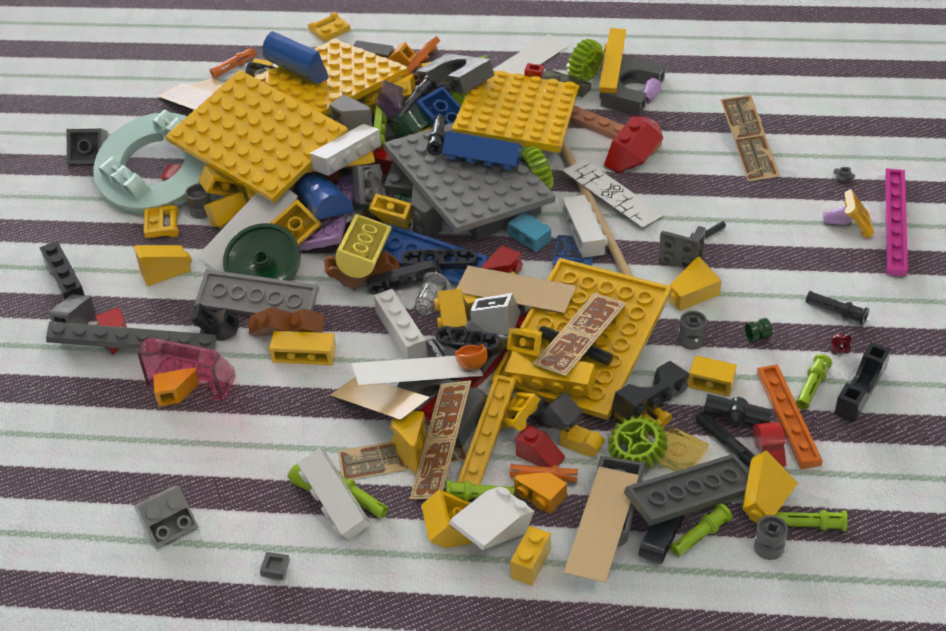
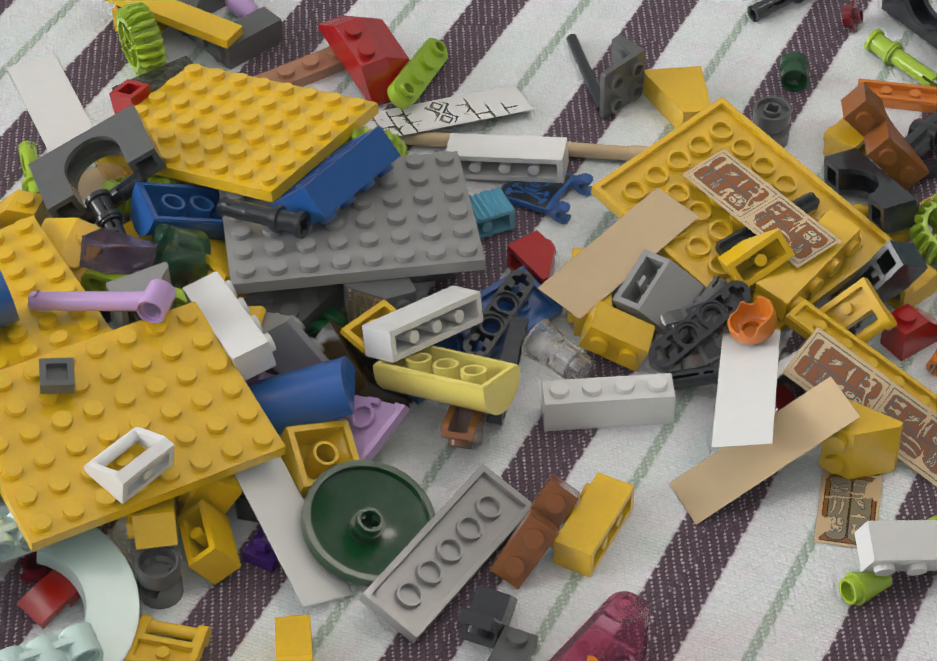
camera: 70 degrees left, 0 degrees up
(220, 149) = (139, 472): none -> white tile
(258, 96) = (56, 375): none -> dark grey plate
(326, 107) = (150, 304): none -> lavender piece
(397, 222) = (422, 323): none -> white brick
(635, 169) = (417, 73): none -> lime plate
(694, 387) = (882, 140): none -> dark orange arch

